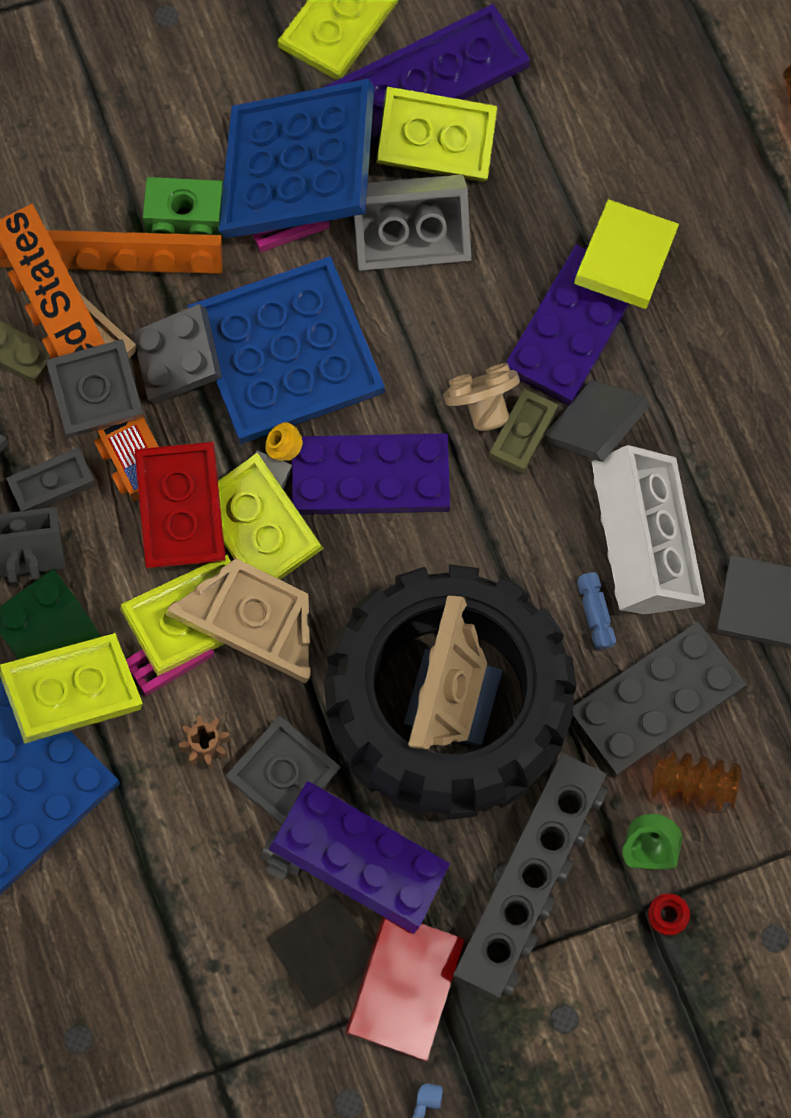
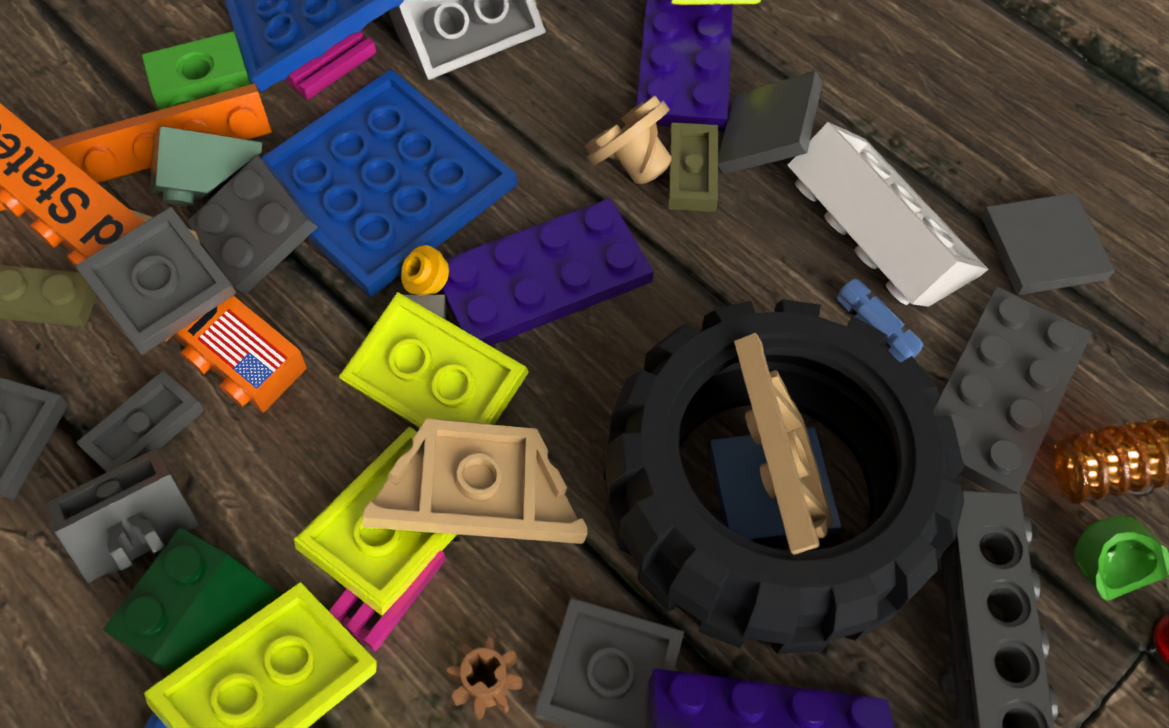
camera: 25 degrees left, 10 degrees down
(155, 290) = (195, 163): none -> sand green slope
(179, 505) = (324, 385): red tile -> none

